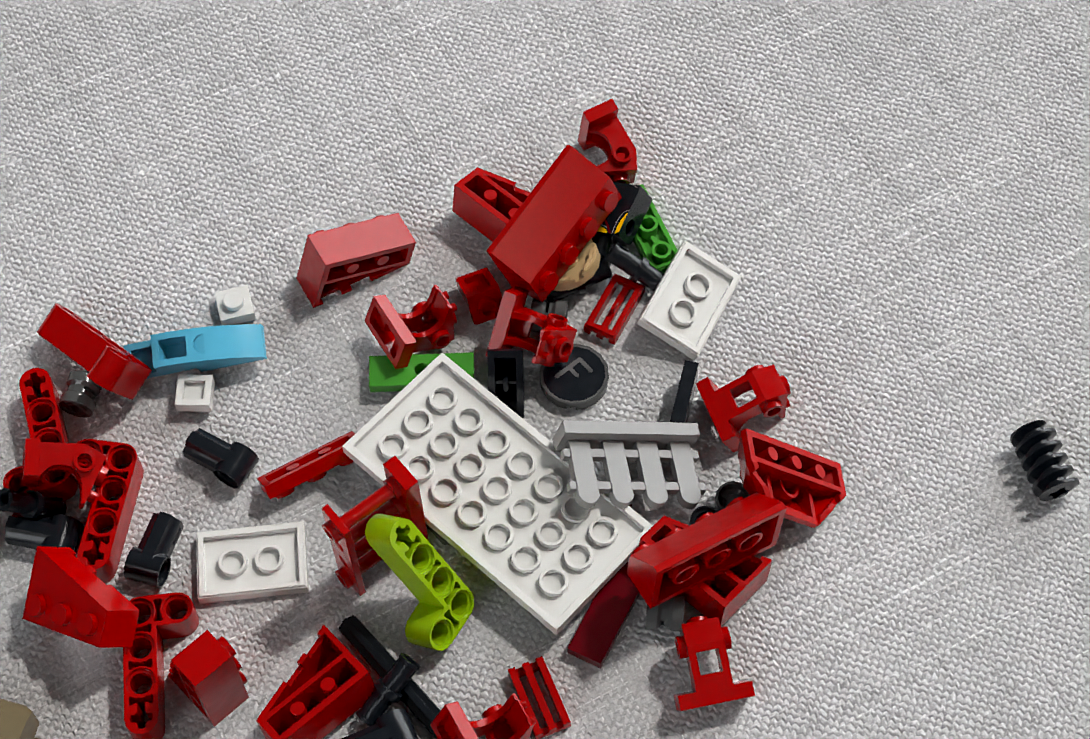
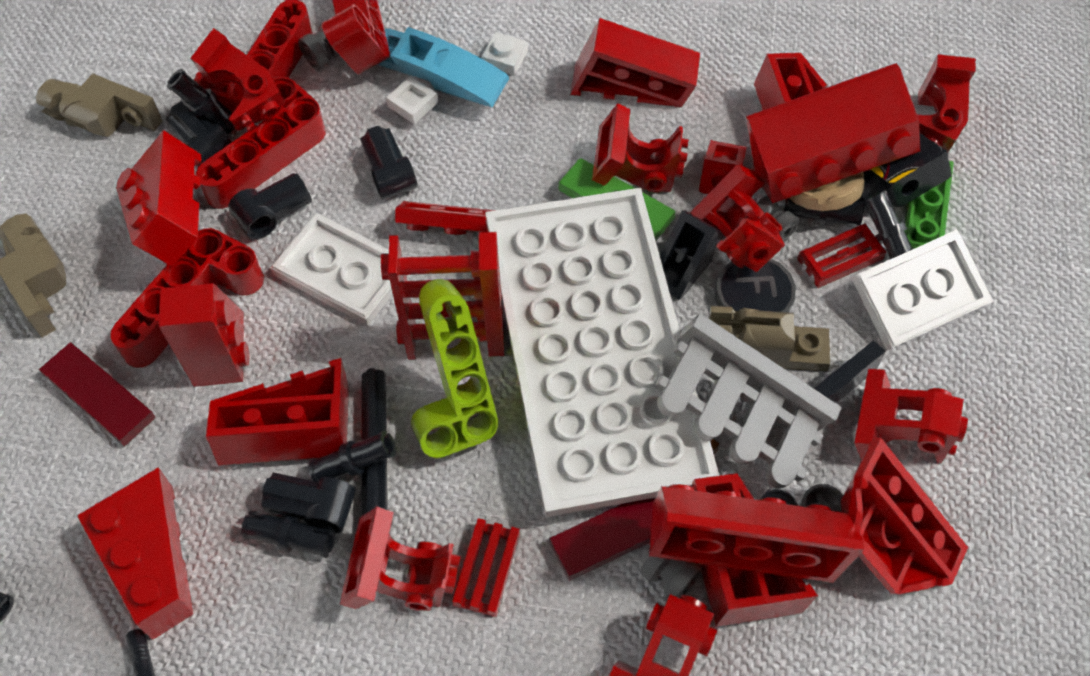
camera: 35 degrees right, 0 degrees up
(615, 401) = (777, 337): none -> dark tan plate

